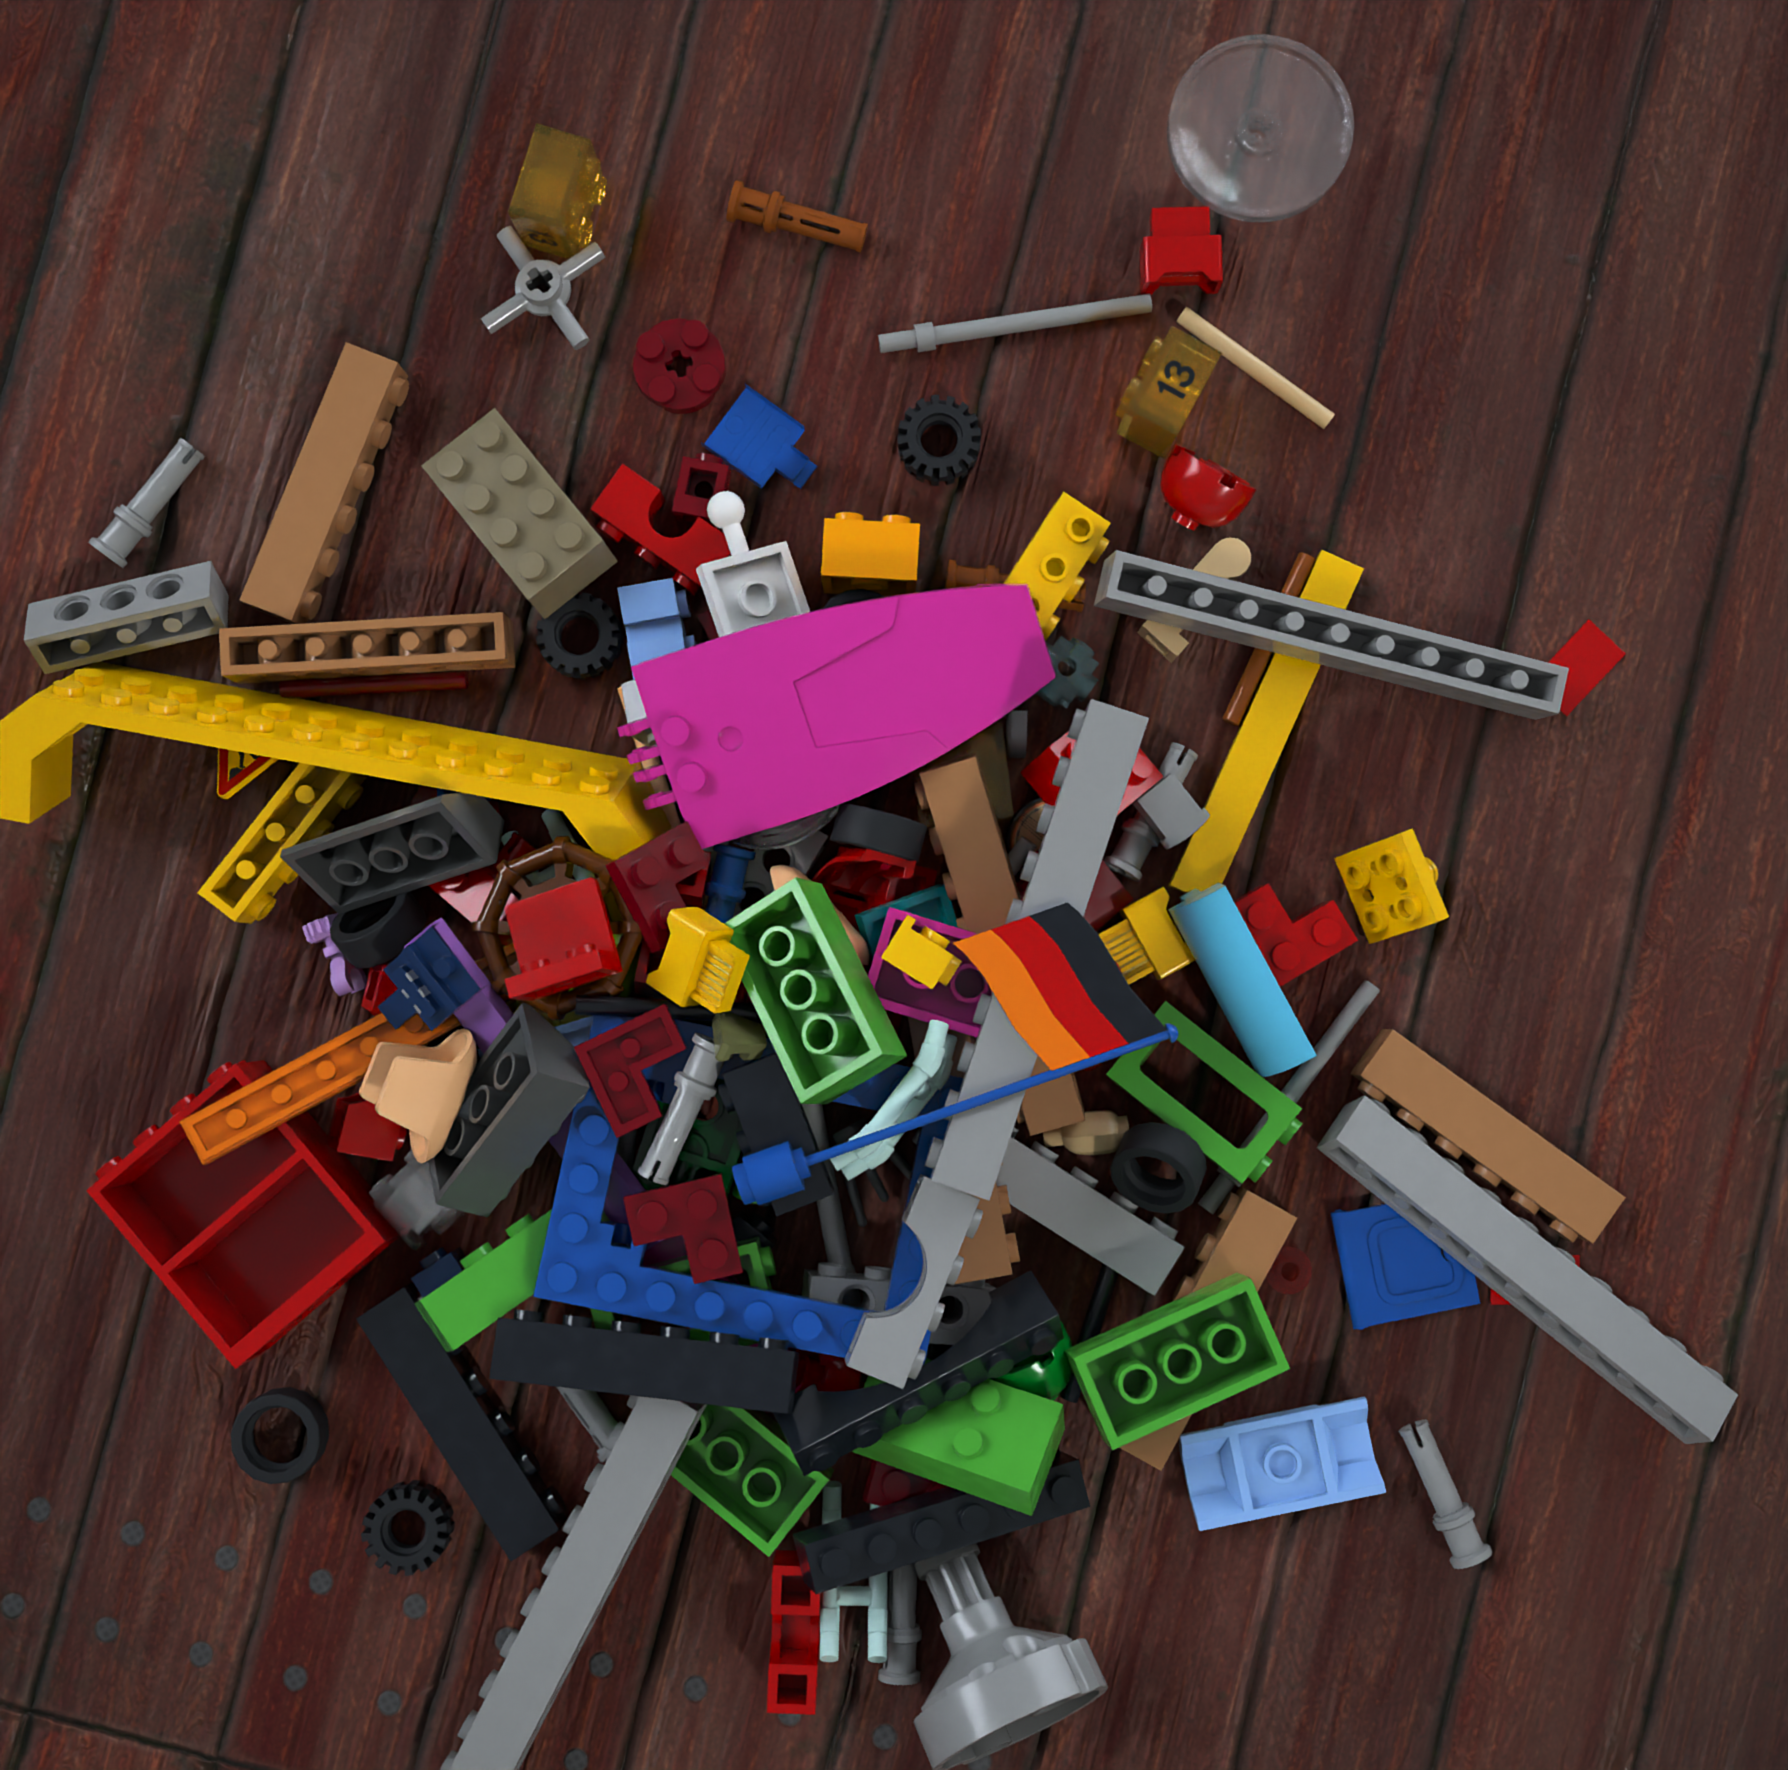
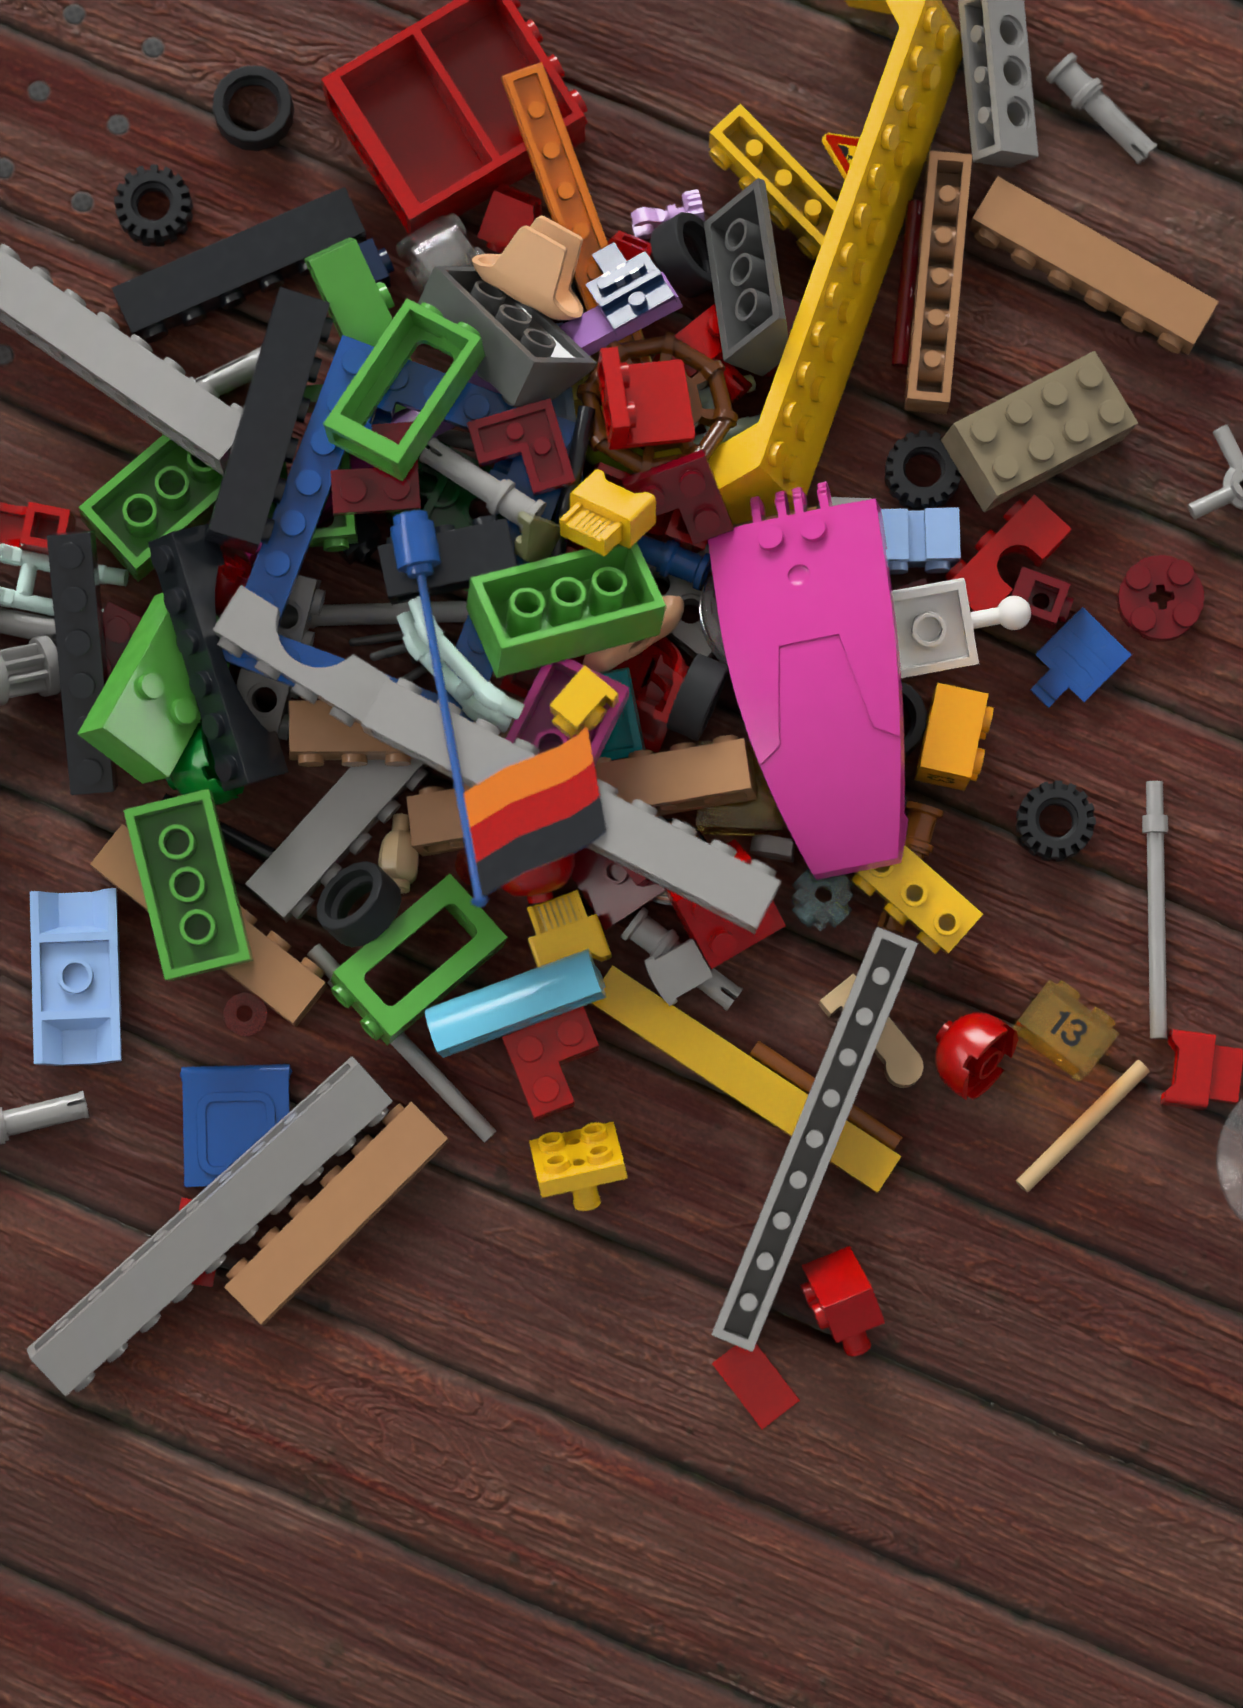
camera: 100 degrees right, 5 degrees down
(521, 1225) = (409, 328): none -> bright green piece
(1487, 584) = (842, 1299): none -> red brick

